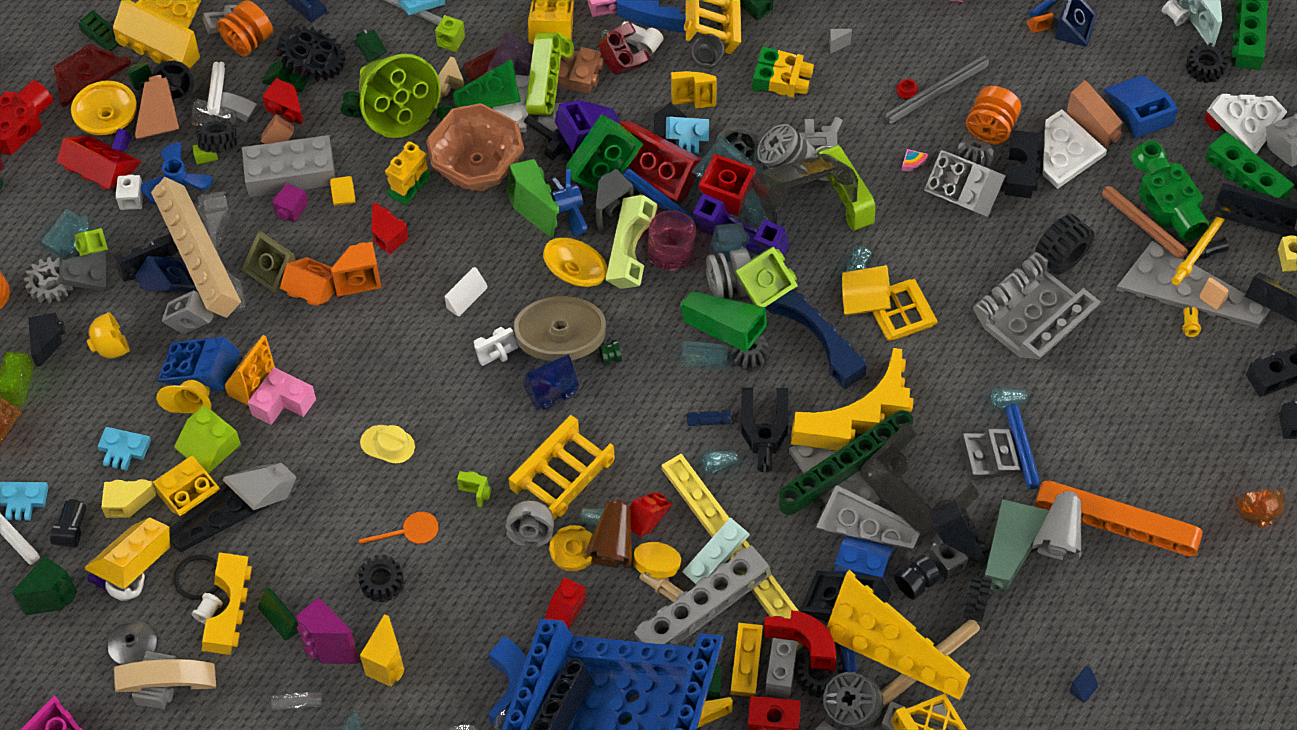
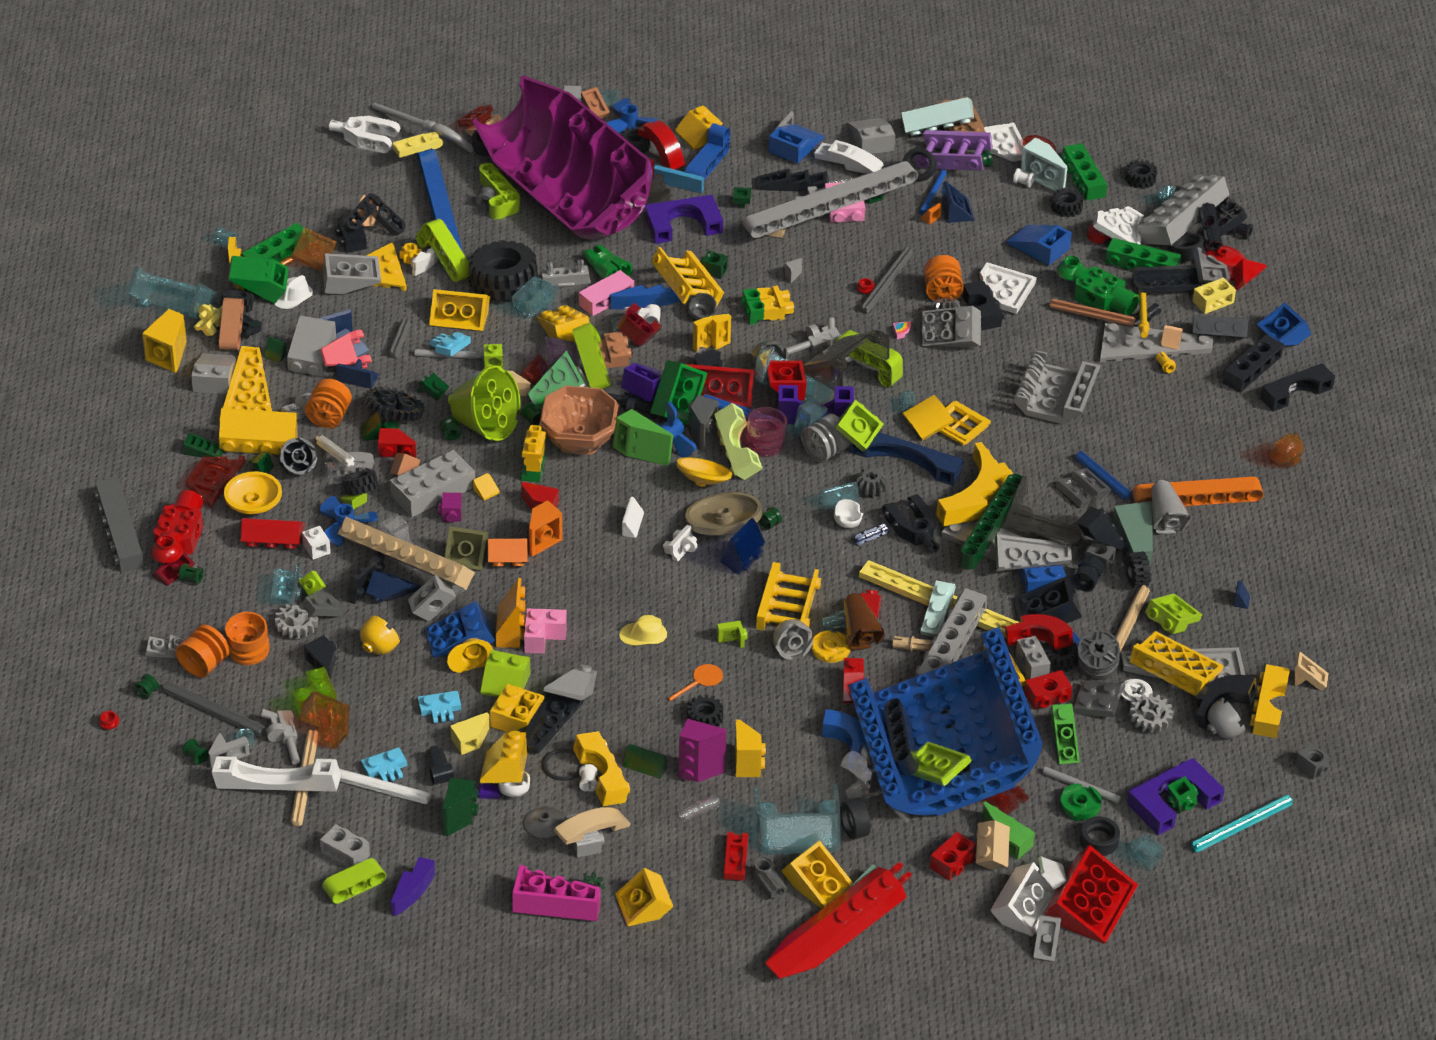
camera: 30 degrees left, 15 degrees down
(121, 140) = (281, 512): dark purple tile -> none
(156, 110) = (299, 478): nougat slope -> none
(656, 559) = (900, 627): yellow tile -> none
(687, 132) = (725, 358): medium azure hinge -> none
(696, 382) = (847, 513): none -> white hair
(717, 460) = (895, 557): clear light blue cone -> none
(724, 318) = (840, 465): green slope -> none
(783, 146) = (808, 343): light grey wheel -> none
(884, 635) = (1096, 608): yellow wing -> none
(989, 674) = (1172, 613): none -> lime plate
(1003, 397) = (1069, 449): clear light blue cone -> none
(1065, 243) = (1051, 338): black tyre -> none
(1094, 114) = (1013, 256): nougat slope -> none

